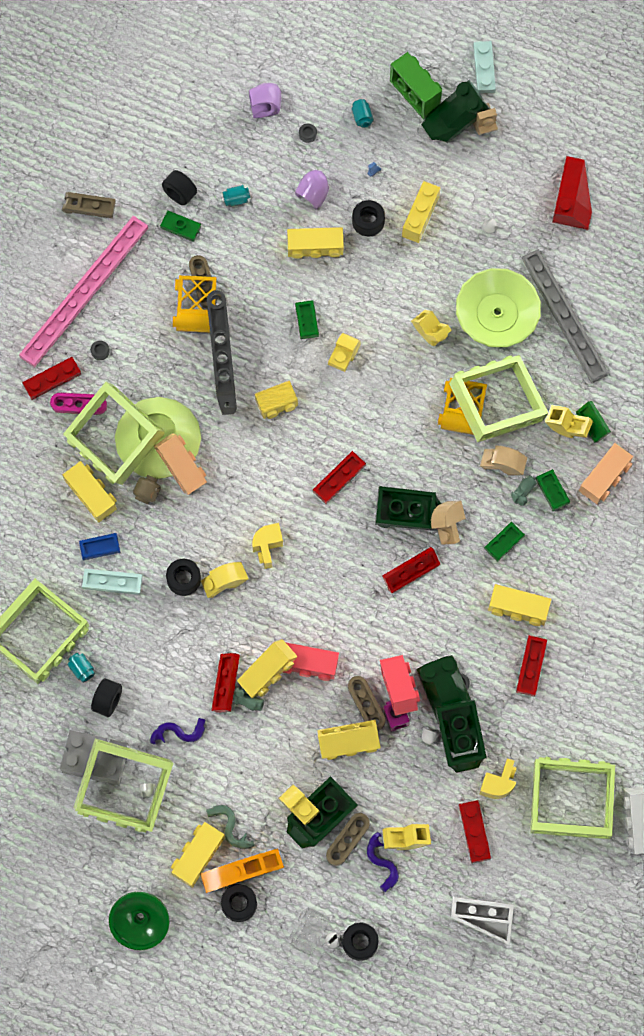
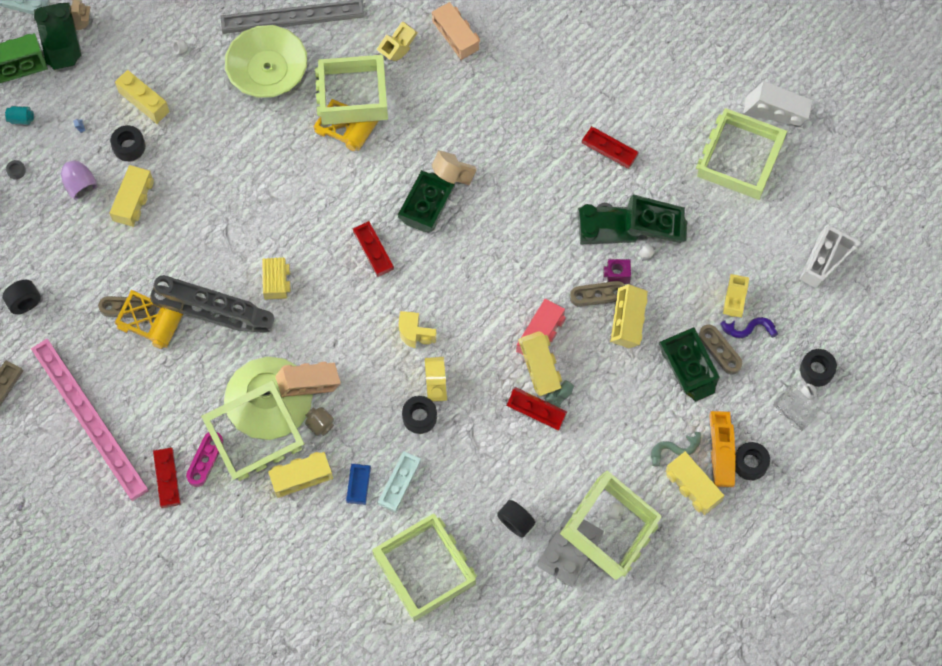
camera: 70 degrees left, 5 degrees down
(81, 667) = (475, 535): teal brick -> none
(100, 350) = (156, 423): dark grey tile -> none
(134, 931) = (751, 550): green dish -> none
(180, 226) = (59, 311): green plate -> none
(196, 735) = (576, 450): dark purple animal -> none
(236, 195) = (52, 250): teal brick -> none
(298, 804) = (674, 378): light yellow brick -> none
(306, 319) = (205, 228): green plate -> none
(344, 352) = (253, 203): light yellow brick -> none
(399, 685) = (594, 256): coral brick -> none
(411, 570) = (485, 216): red plate -> none
(430, 328) = (260, 126): light yellow brick -> none
(474, 831) = (745, 243): red plate -> none
(499, 787) = (710, 206): light yellow brick -> none
(504, 458) = (410, 105): tan brick -> none
(504, 541) = (487, 132): green plate -> none
(519, 605) = (551, 138): light yellow brick -> none
(522, 491) = (442, 100): sand green arm -> none
(552, 490) = (453, 78): green plate -> none
(598, 428) = (393, 23): green plate -> none

